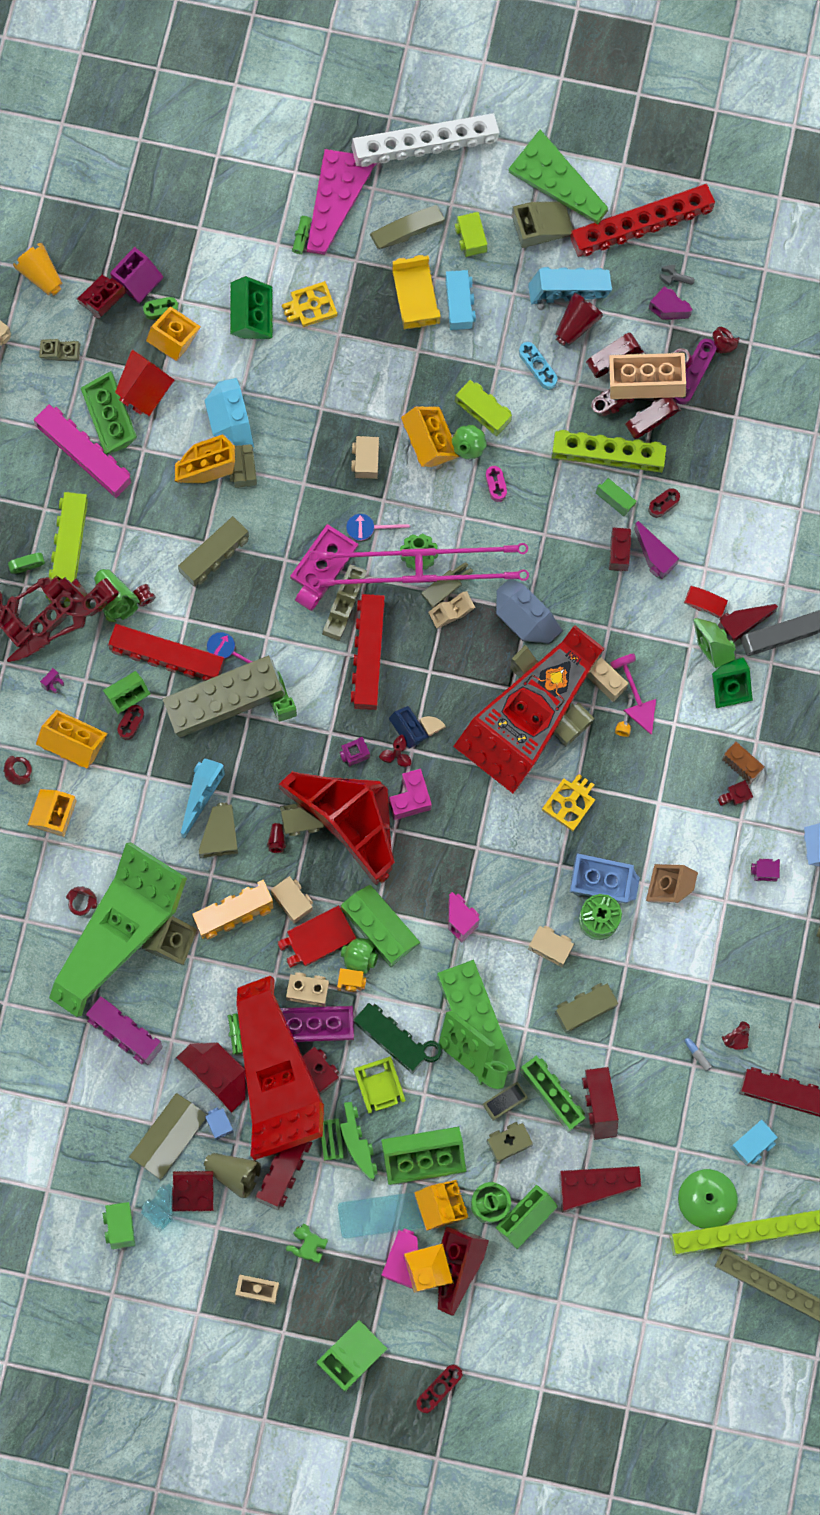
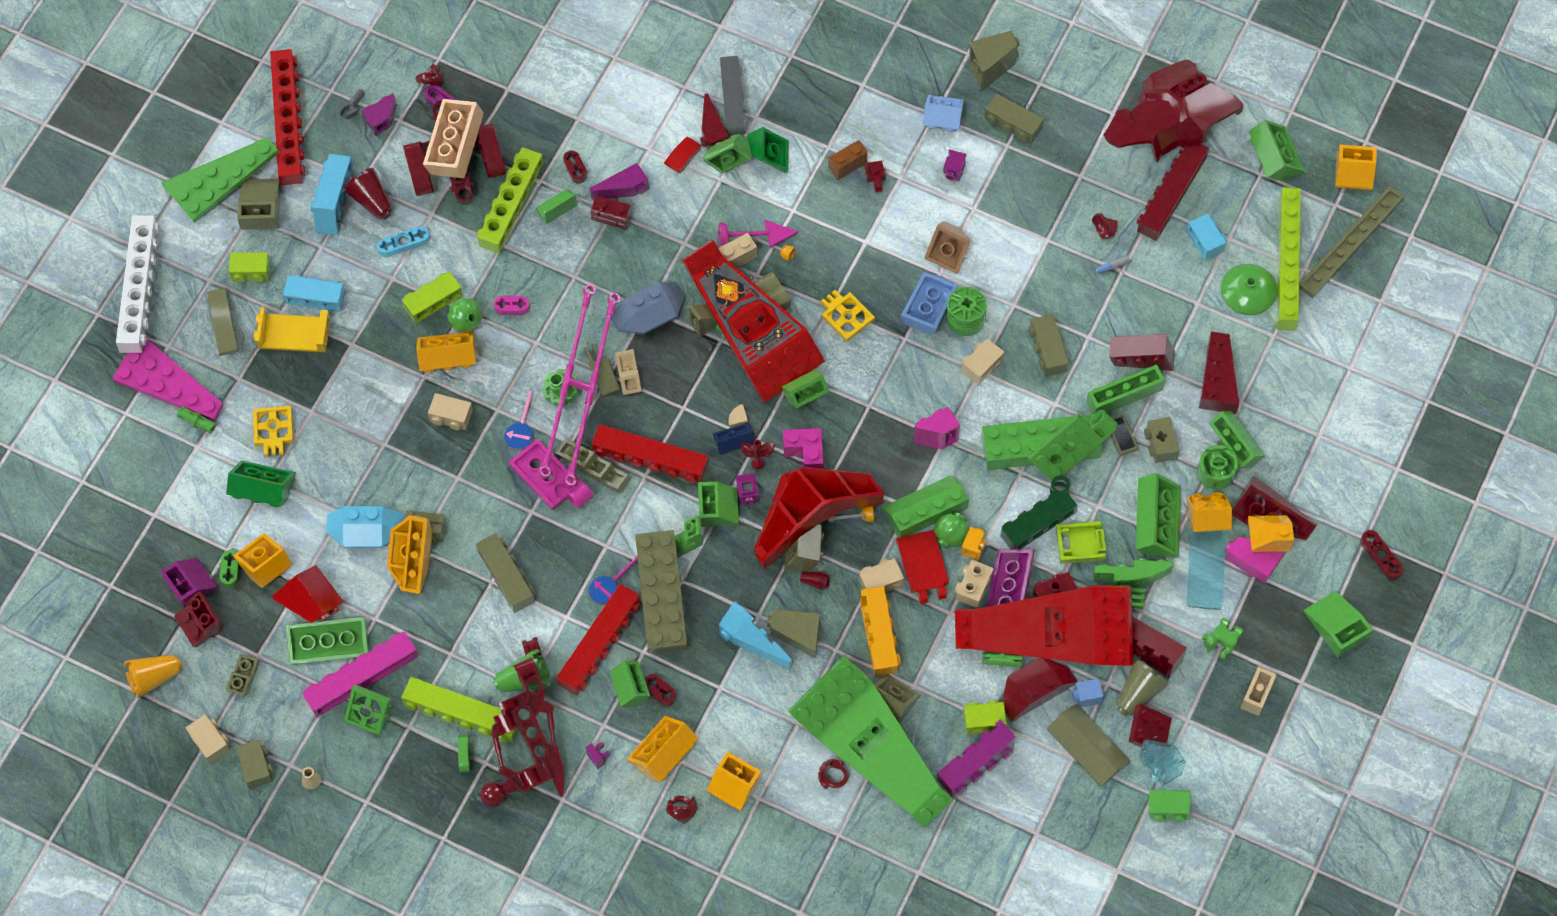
camera: 70 degrees left, 10 degrees down
(40, 457) = (353, 704): none -> bright green piece
(170, 1029) = (982, 717): none -> lime brick
(329, 727) = (717, 504): none -> bright green slope
(356, 872) = (866, 514): none -> hinge
(473, 780) = (805, 389): none -> bright green brick

